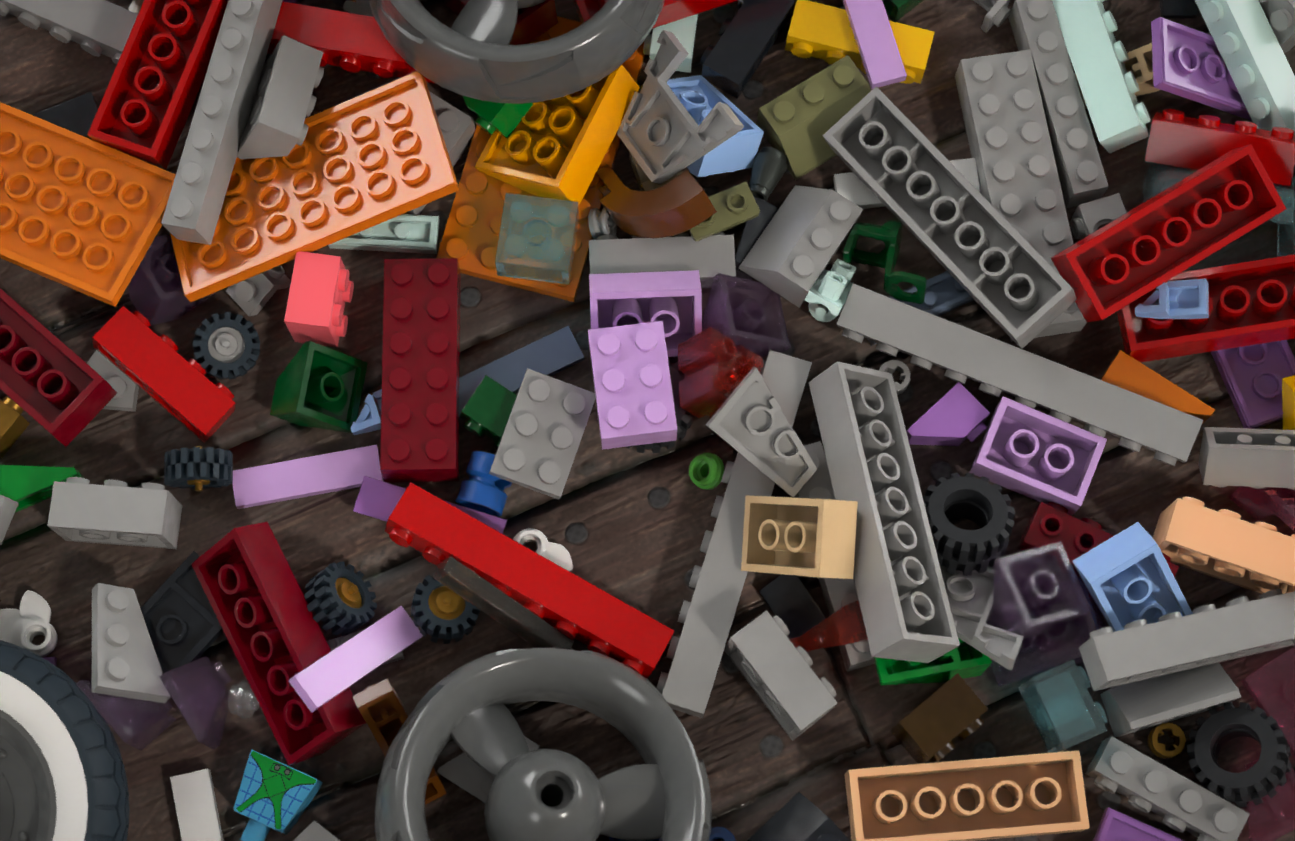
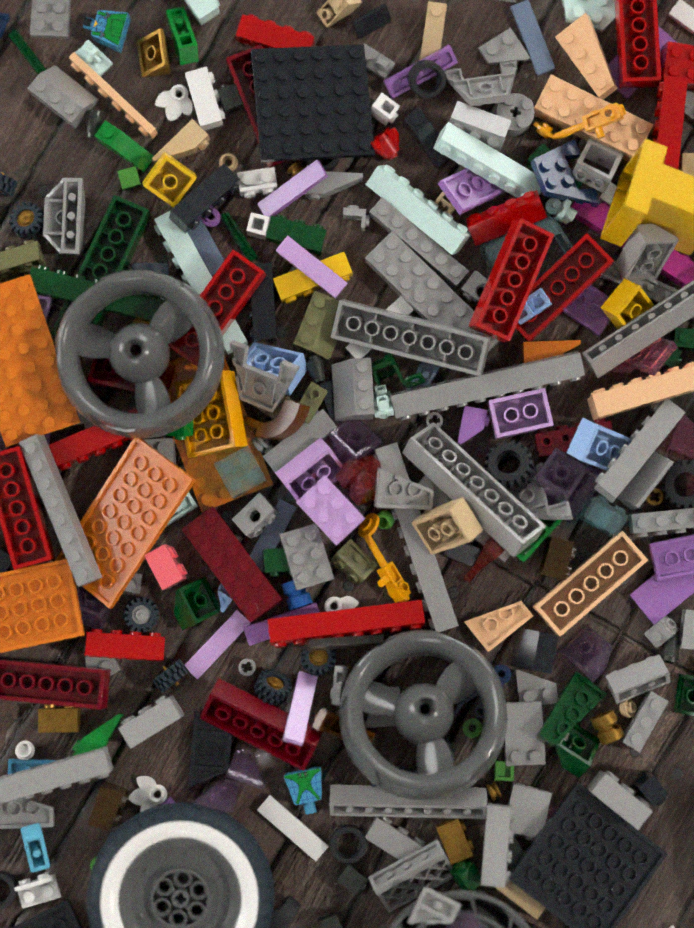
camera: 30 degrees left, 10 degrees up
(122, 648) = (198, 773): light grey wing -> none
(282, 101) = (84, 491): light grey slope -> none
(321, 553) = (249, 672): none -> light grey bush
(456, 654) = (339, 677): none -> light grey wing
(495, 313) = (244, 518): none -> light grey brick
(610, 501) = (353, 562): none -> olive bracket
(652, 553) = (389, 574): none -> light orange piece
(770, 763) = (498, 624): none -> light nougat wing
(781, 674) = (479, 586): light grey slope -> none

